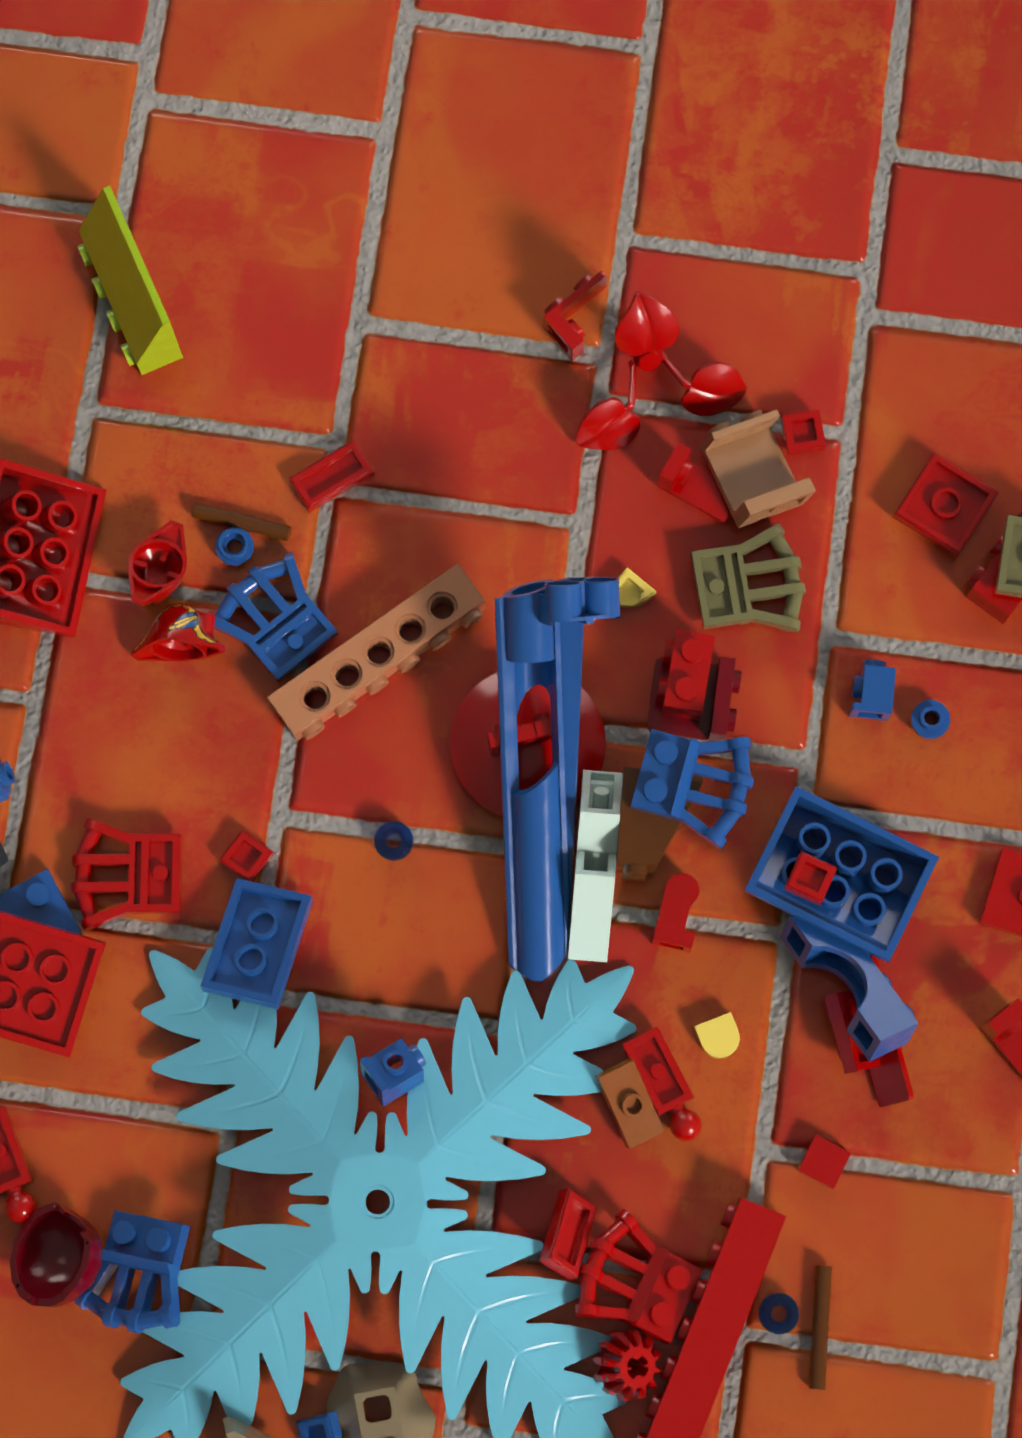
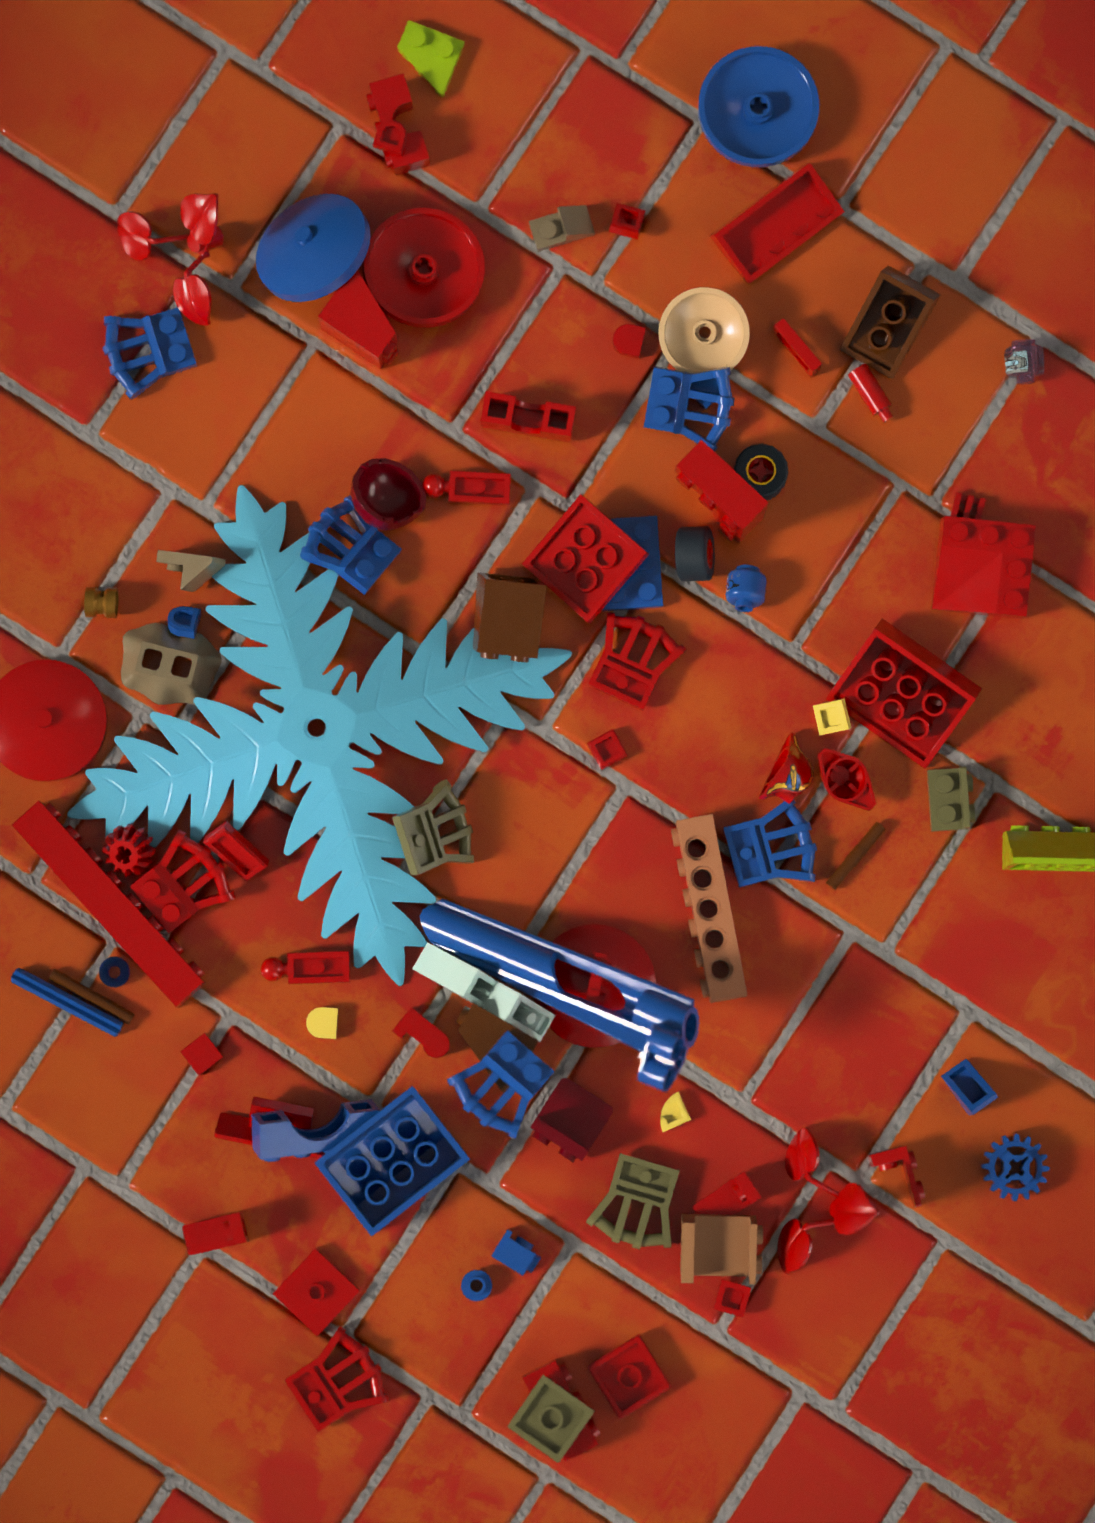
camera: 115 degrees right, 5 degrees up
(92, 617) = (832, 716): none -> light yellow plate
(128, 445) = (949, 799): none -> olive bracket
(139, 1040) = (508, 616): none -> reddish brown slope
(234, 535) = (848, 839): blue plate -> none
(257, 943) = (539, 728): blue plate -> none
(331, 476) = (860, 936): red tile -> none
(387, 830) = (576, 851): clear blue plate -> none
(392, 1083) = (392, 773): blue brick -> none
(446, 279) = (969, 1087): none -> blue slope
(446, 1020) = (420, 835): none -> olive plate
(513, 181) = (1025, 1178): none -> blue gear
(629, 1103) = (305, 936): dark orange plate -> none
(688, 674) = (588, 1122): red brick -> none
(810, 878) = (398, 1135): red tile -> none
(841, 1354) = (67, 1002): none -> blue axle

